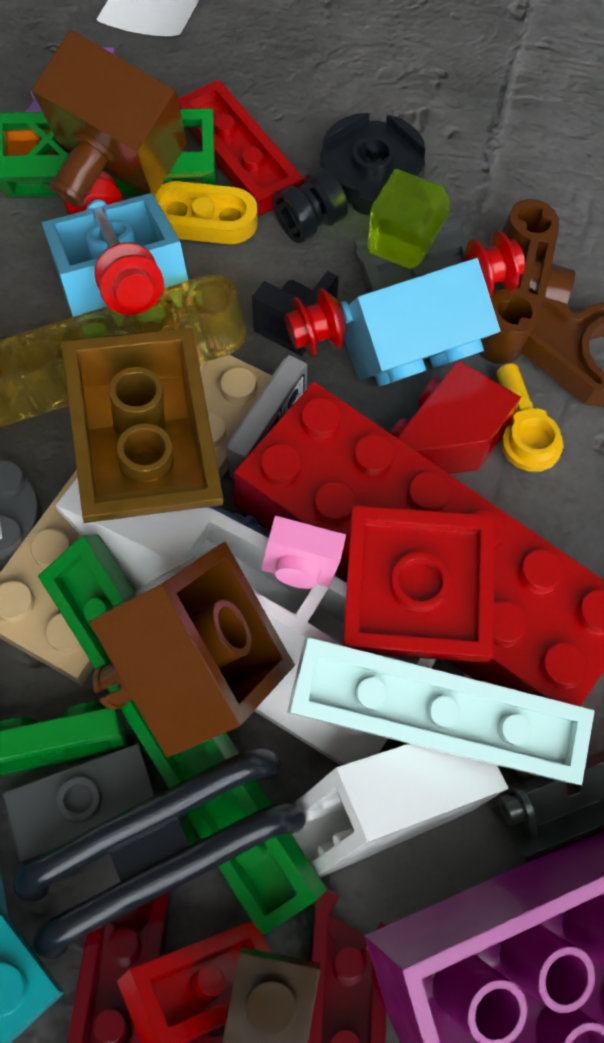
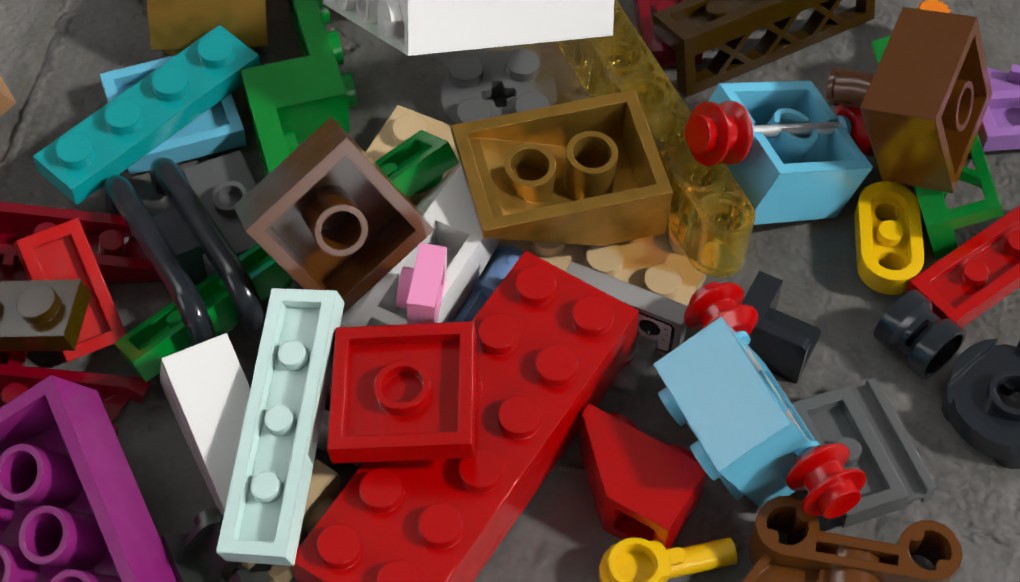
camera: 85 degrees right, 10 degrees down
(406, 219) = (895, 406): clear neon green piece -> none

